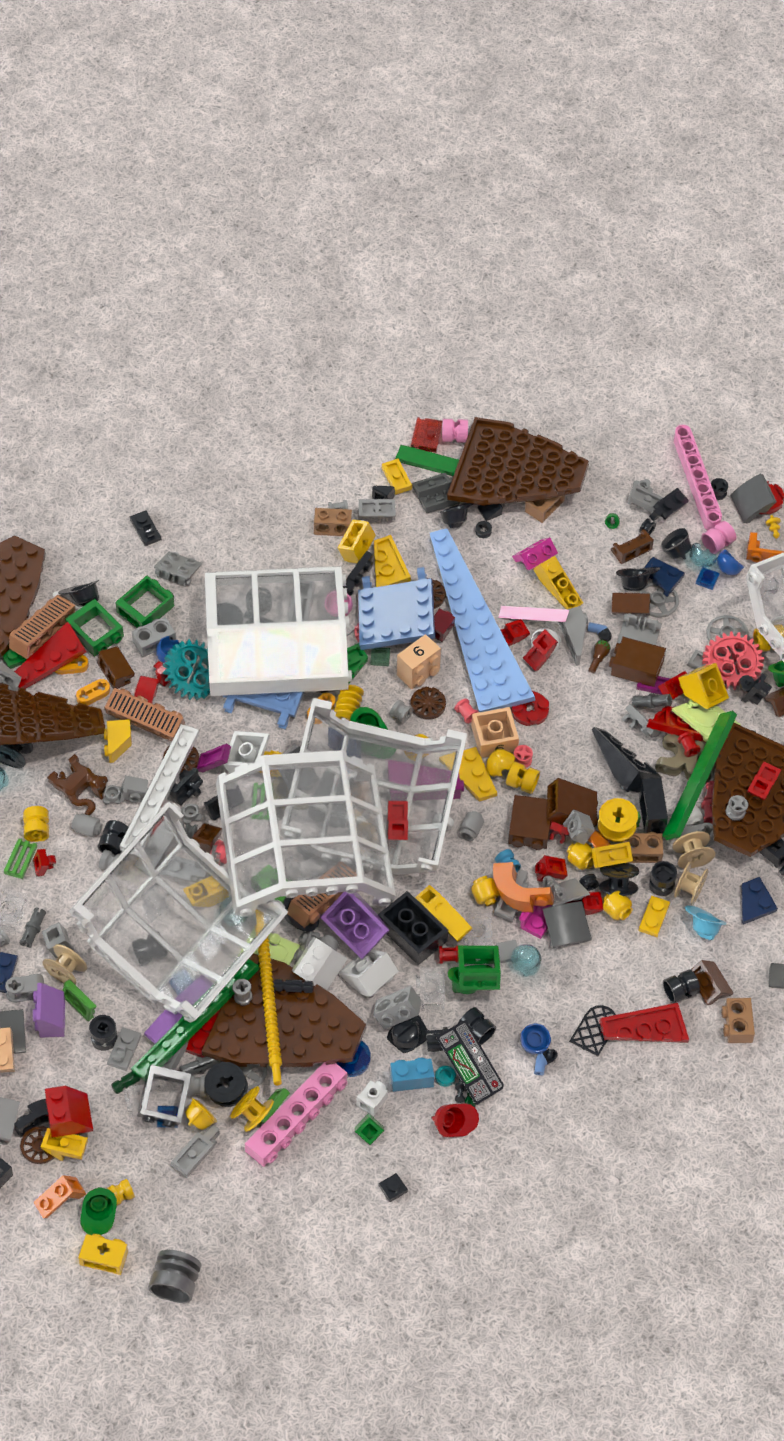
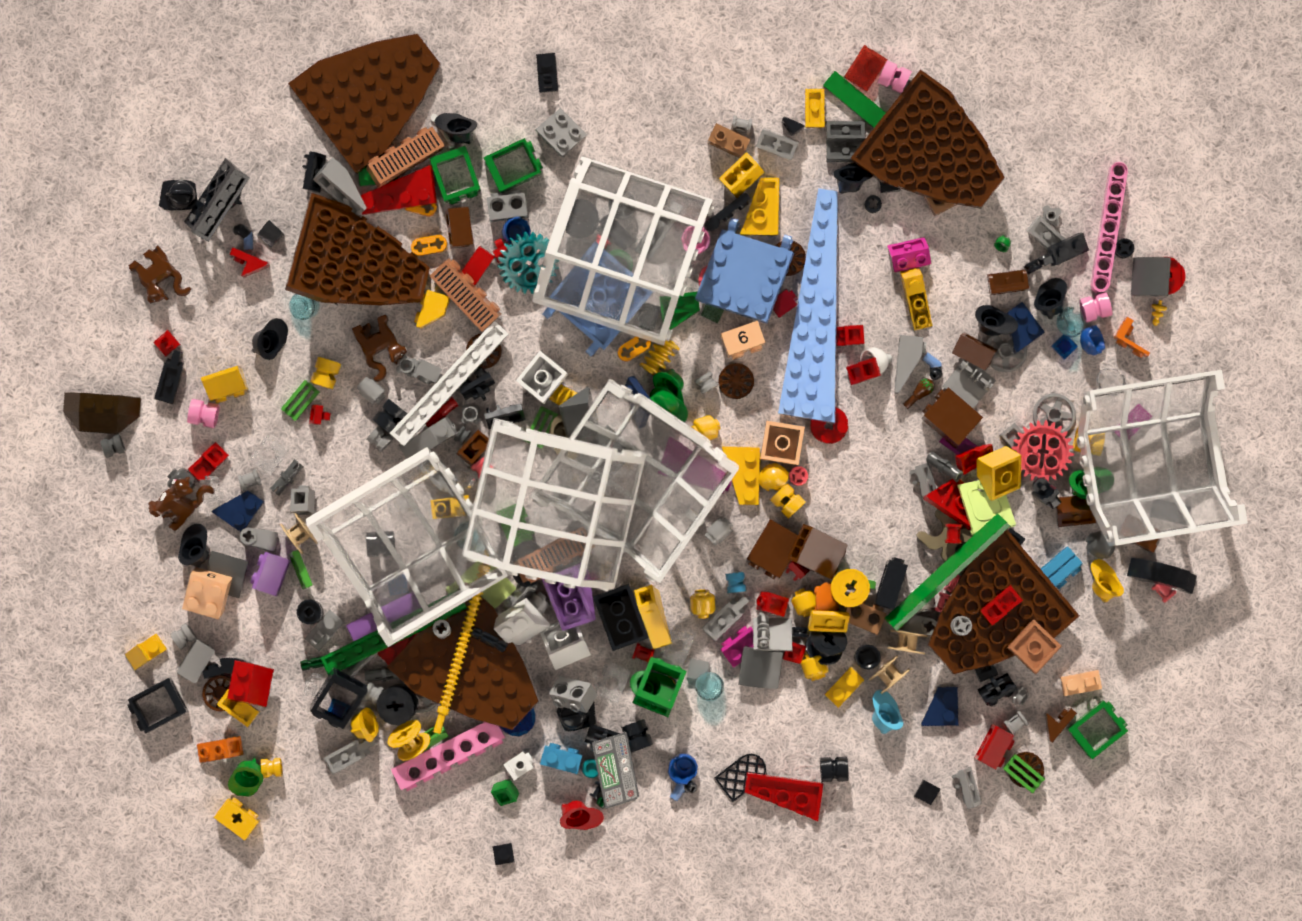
camera: 25 degrees right, 30 degrees up
(175, 1276) = (286, 868): flat silver wheel -> none
(214, 758) = (511, 368): magenta tile -> none
(397, 820) = (648, 510): red slope -> none
(465, 709) = (767, 406): coral bush -> none
(516, 896) = (720, 615): orange arch -> none
(533, 613) = (876, 324): bright pink sticker -> none
(579, 826) = (811, 582): light grey brick -> none
(622, 762) = (889, 528): black wedge -> none
(711, 981) = (863, 772): reddish brown panel -> none
(743, 1020) = (875, 823): medium nougat brick -> none

